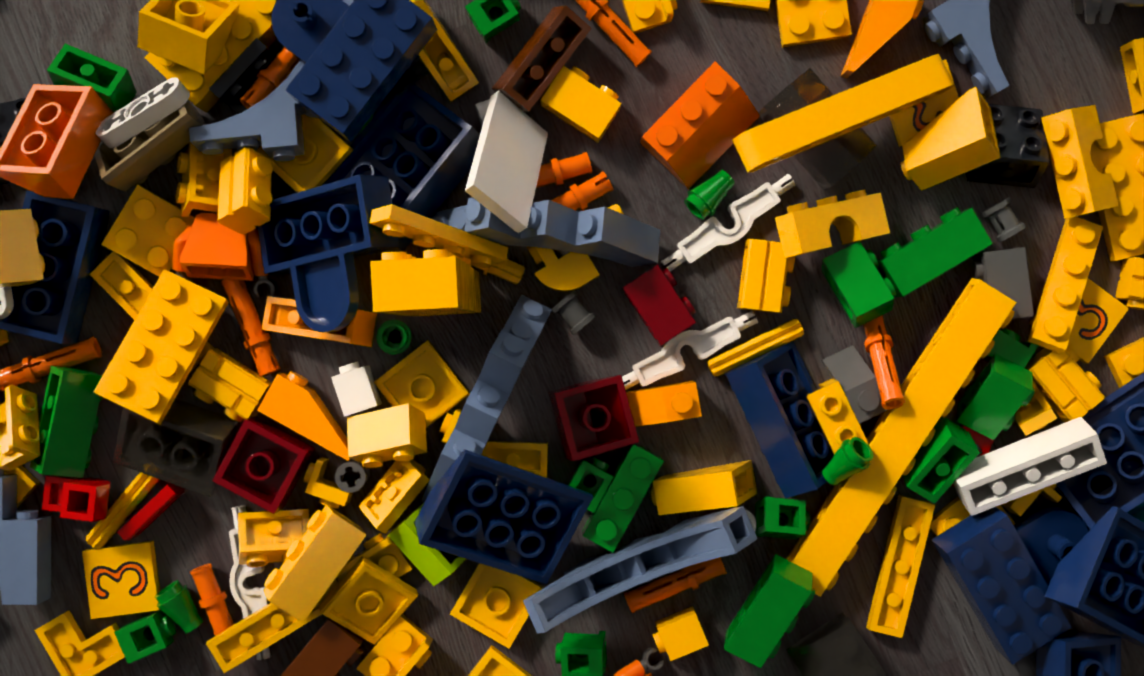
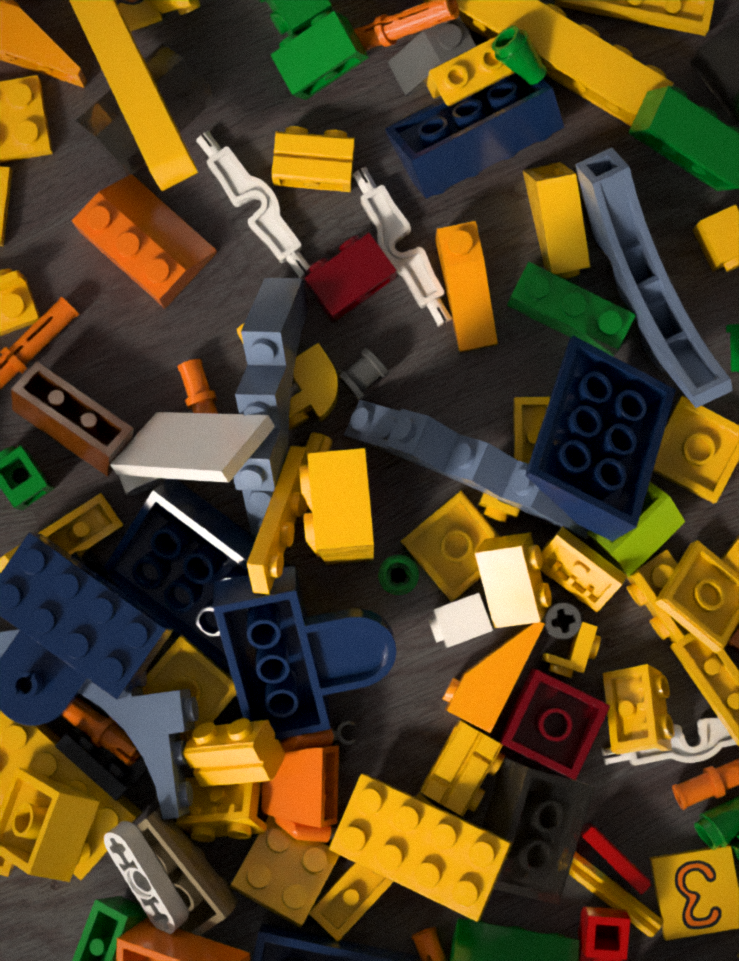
camera: 90 degrees left, 5 degrees down
(247, 316) = (401, 743): orange pin -> none
(283, 317) = (380, 701): light orange slope -> none
(313, 562) = (665, 657): yellow brick -> none
(581, 102) = (122, 372): yellow brick -> none
(581, 195) = (227, 369): orange pin -> none
(593, 417) = (482, 345): dark red slope -> none
(600, 470) = (551, 334): green brick -> none
(674, 583) = (669, 250): orange pin -> none
(707, 197) = (224, 227): green cone -> none
(755, 347) = (394, 169): yellow axle -> none
(793, 512) = (586, 130): green brick -> none
(808, 228) = (259, 108): yellow arch -> none

